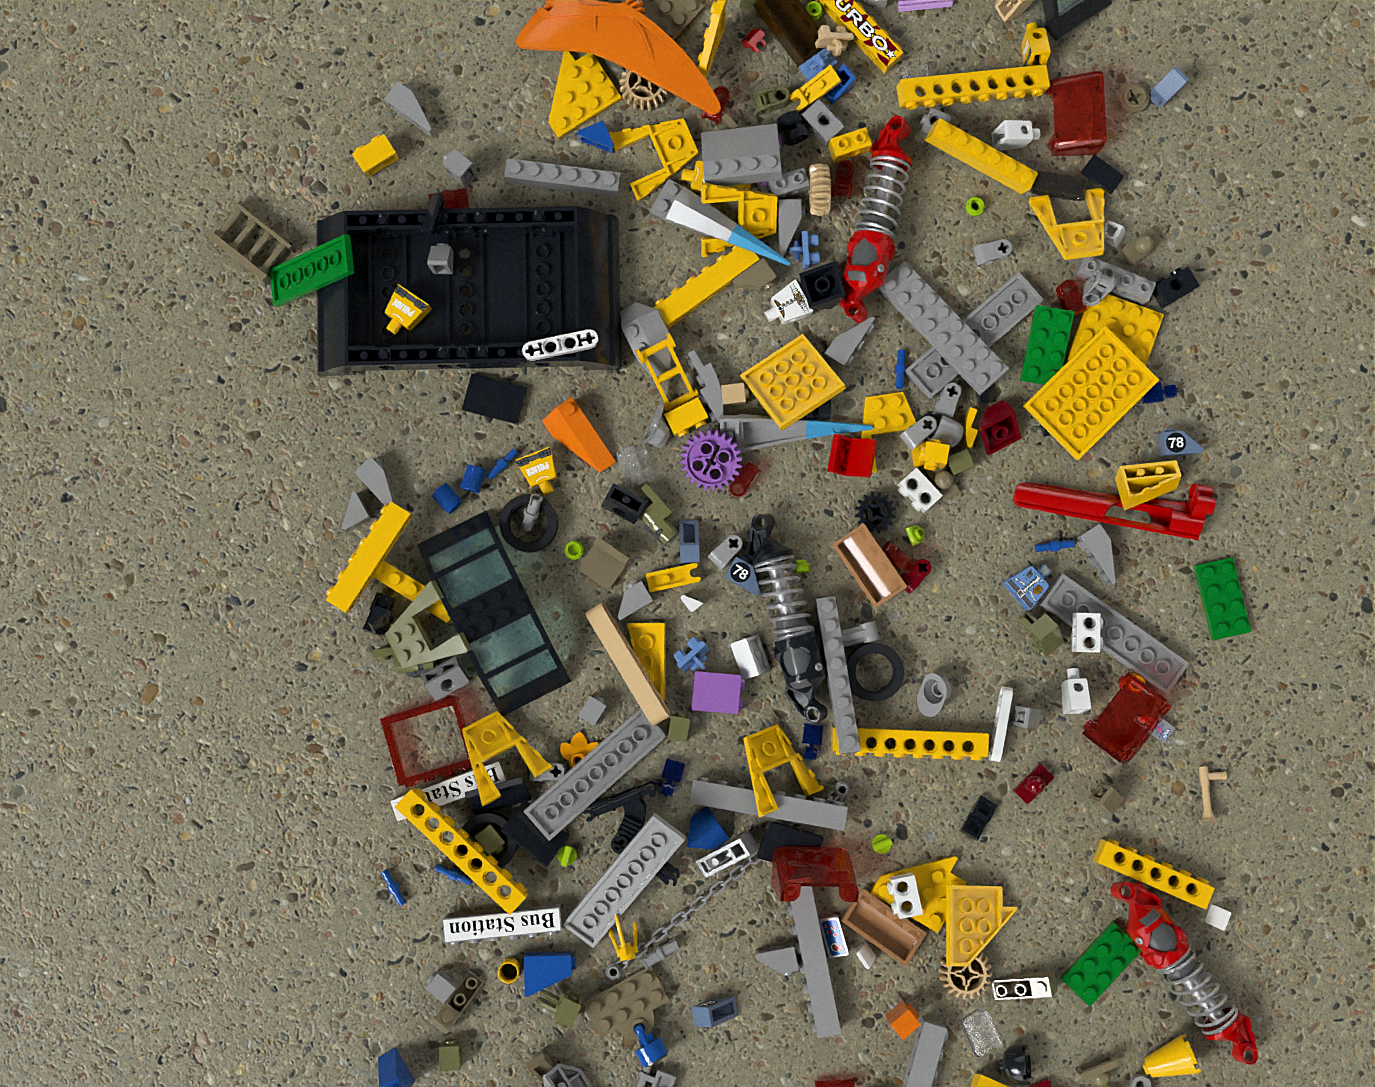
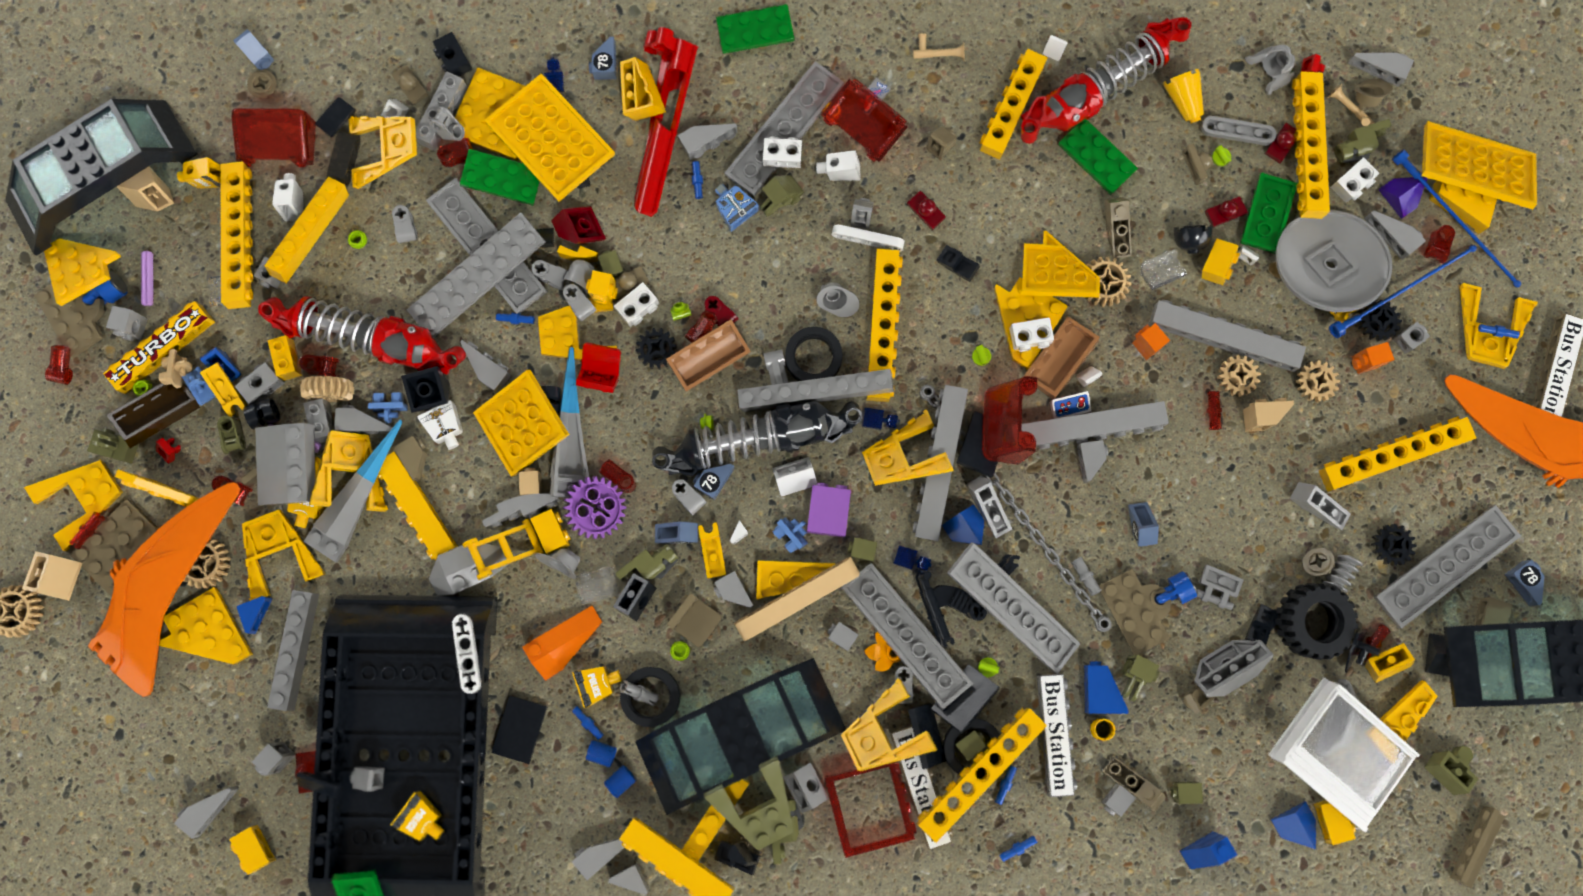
camera: 85 degrees left, 5 degrees down
(626, 951) = (1083, 609): yellow plant -> none

